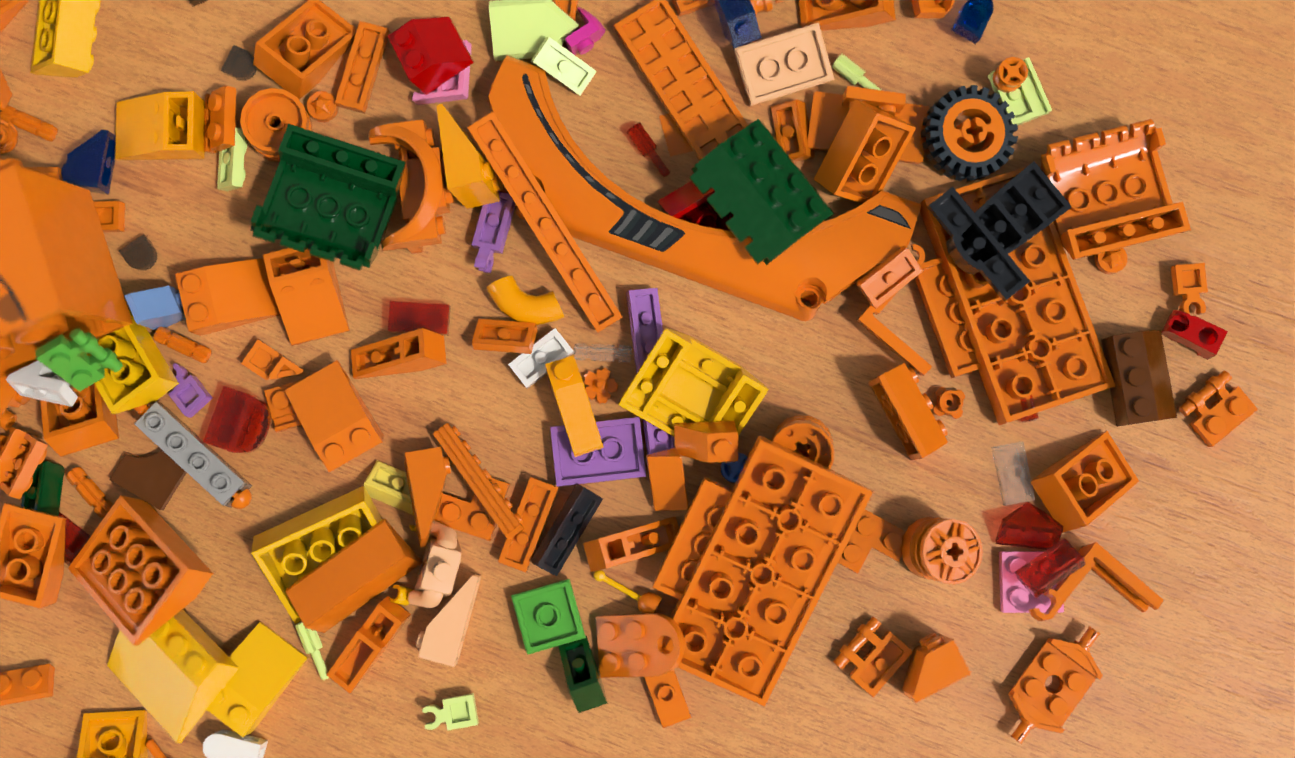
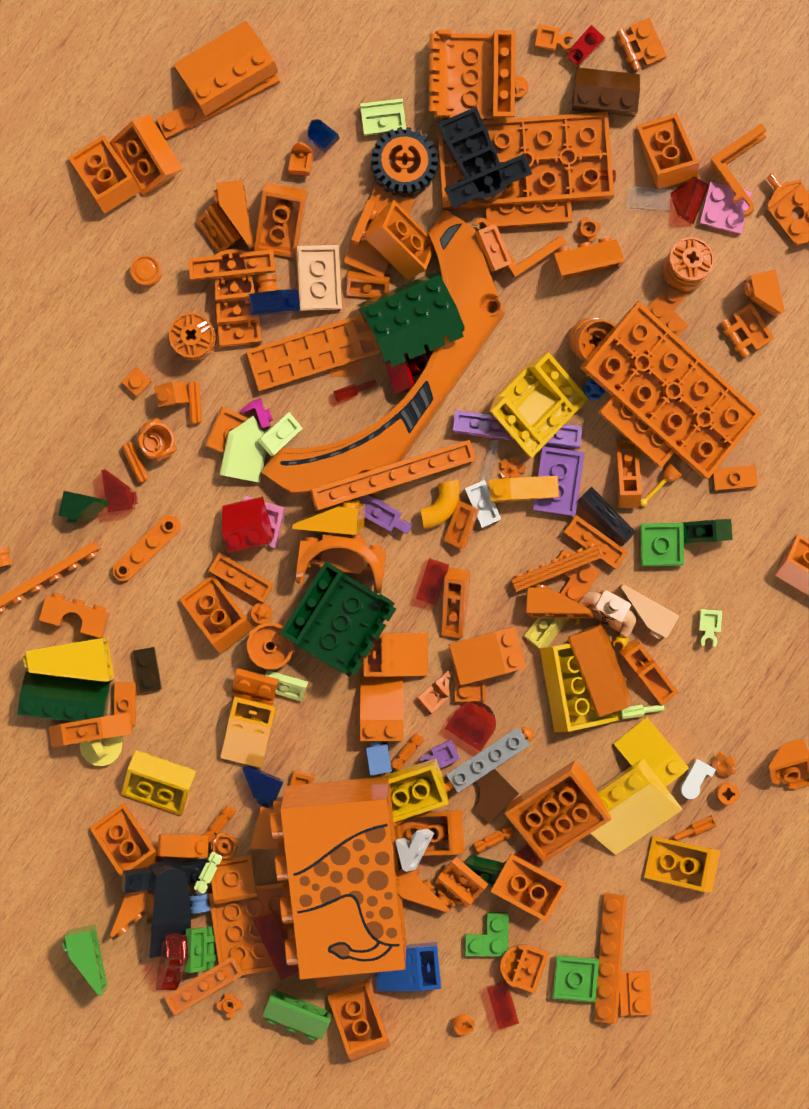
camera: 80 degrees left, 5 degrees up
(72, 363) = (409, 818): bright green plate -> none
(140, 253) = (334, 767): clear smoke tile -> none
(239, 64) = (215, 664): clear smoke tile -> none
(634, 645) = (697, 490): orange plate -> none
(667, 480) = (591, 438): orange slope -> none
(707, 441) = (572, 403): orange slope -> none
(852, 72) = (339, 228): yellowish green axle -> none
(1015, 69) = (369, 118): orange wheel -> none
(1050, 568) = (719, 194): clear red plate -> none

